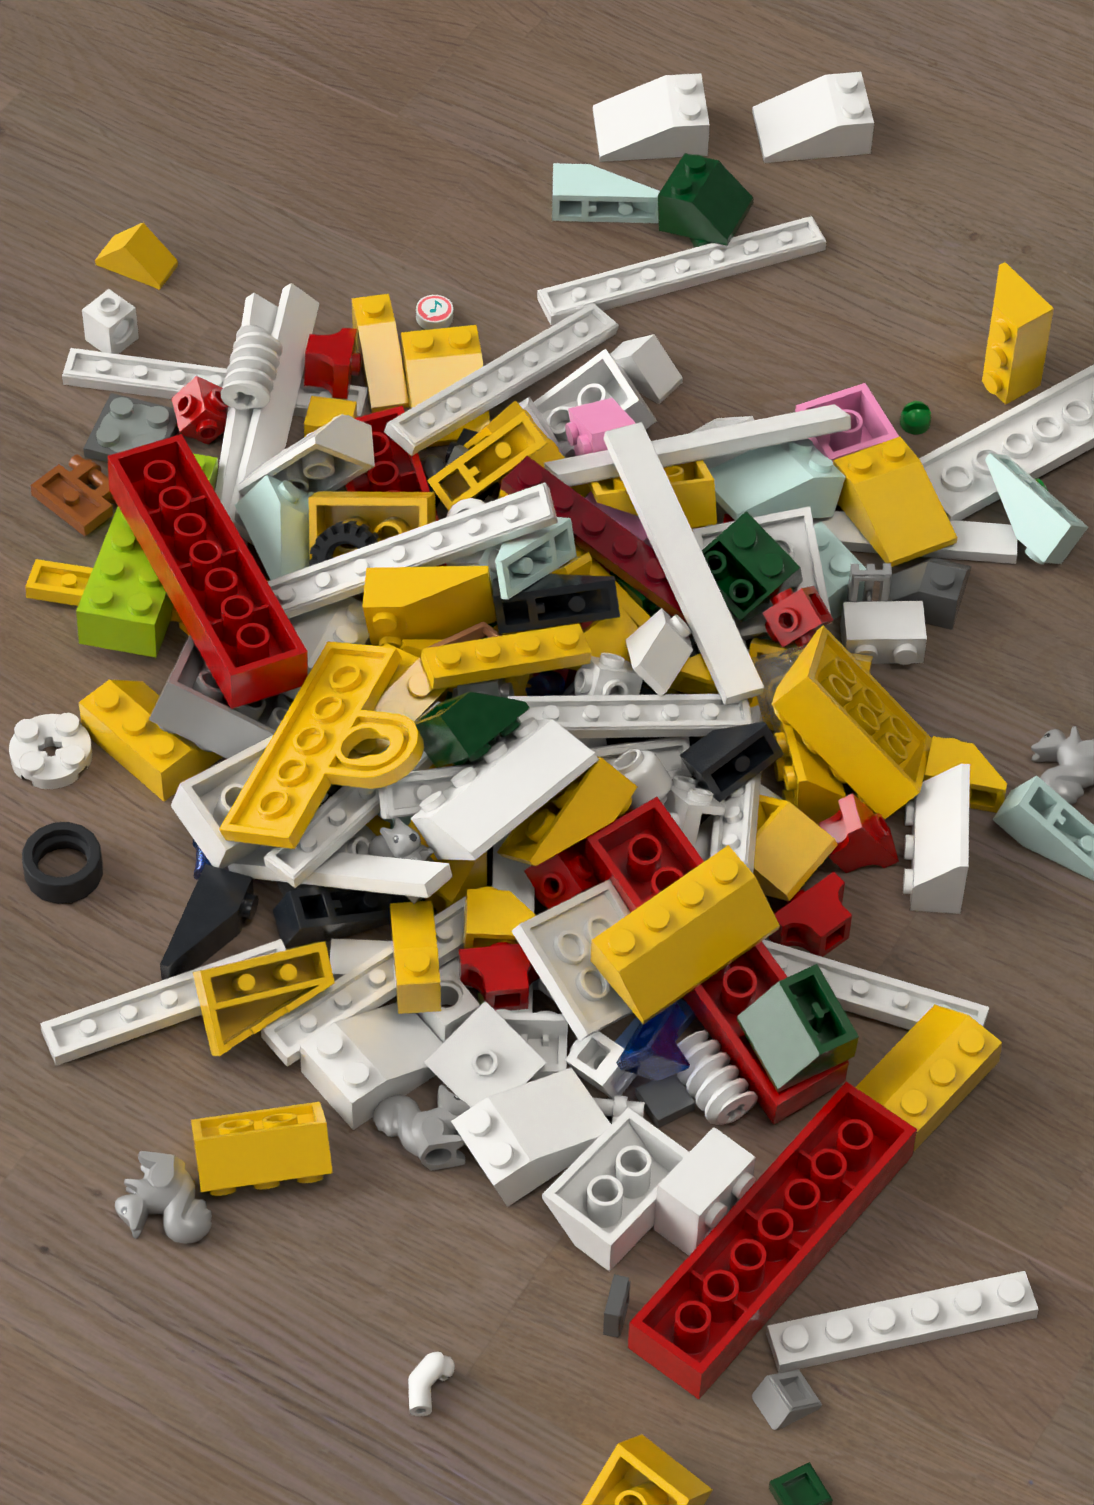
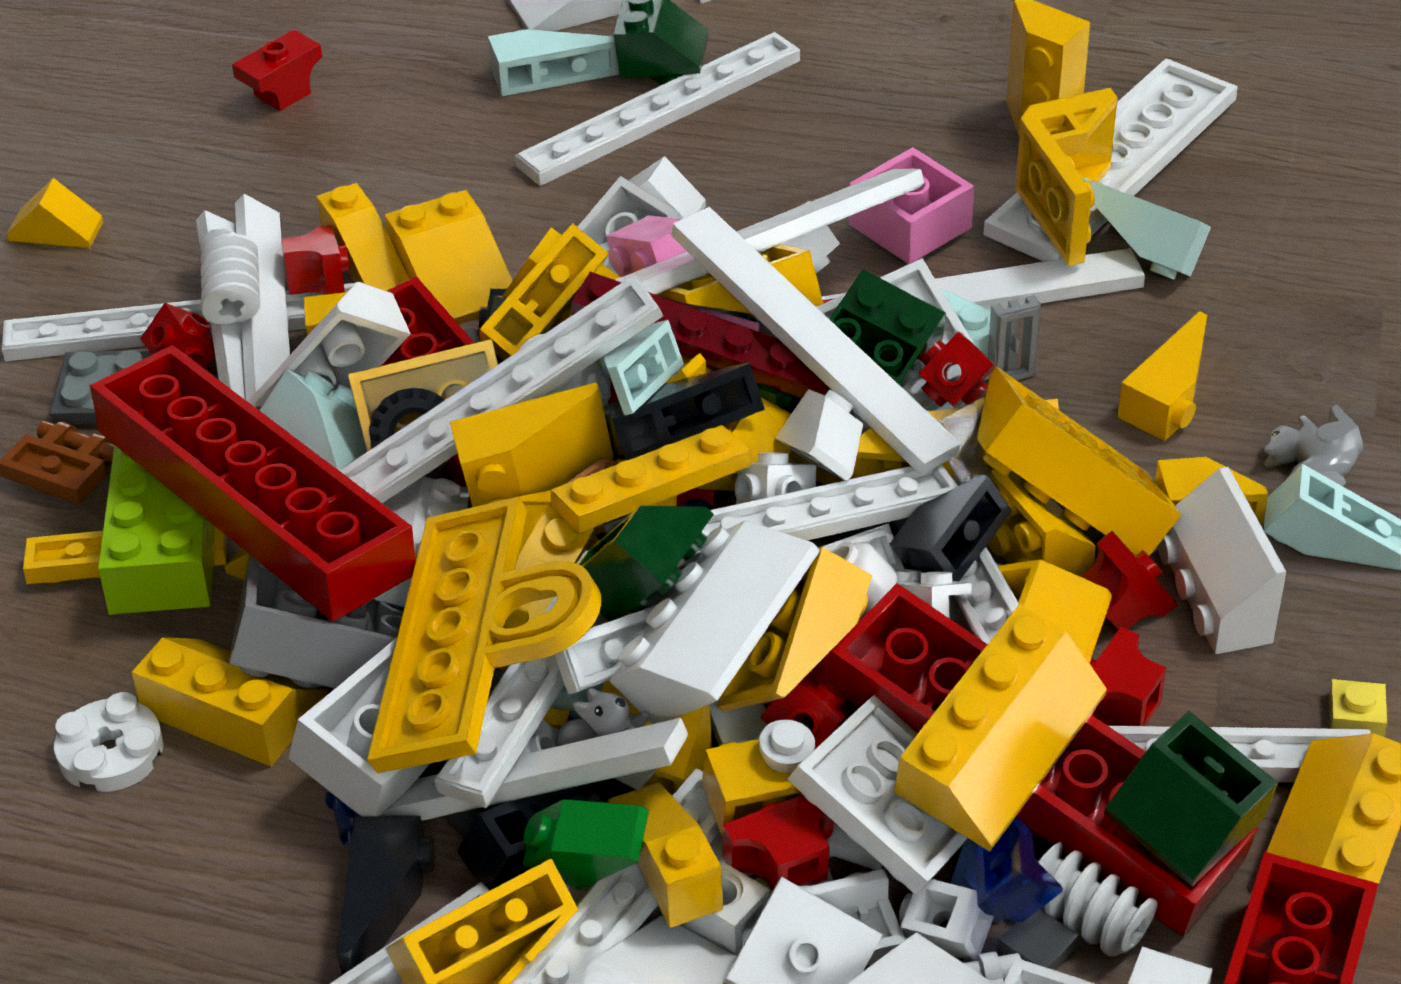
camera: 15 degrees left, 10 degrees down
(62, 836) = (154, 837): black tyre -> none
(110, 323) = (43, 283): white brick -> none
(356, 932) = (585, 839): none -> green slope
(366, 149) = (280, 69): none -> red brick
(434, 312) = (407, 194): white tile -> none
(501, 379) = (510, 236): white tile -> none
(525, 901) = (785, 745): none -> white plate
(778, 481) = (871, 244): light aqua slope -> none
(885, 630) = (1054, 370): white brick -> none
(893, 502) = (990, 249): yellow slope -> none
(915, 418) = (974, 174): green hinge -> none
(935, 583) = (1075, 330): dark grey slope -> none
(980, 667) = (1162, 389): none -> yellow slope
(992, 415) = (1055, 150): none -> yellow bracket
(994, 986) = (1358, 706): none -> light yellow plate

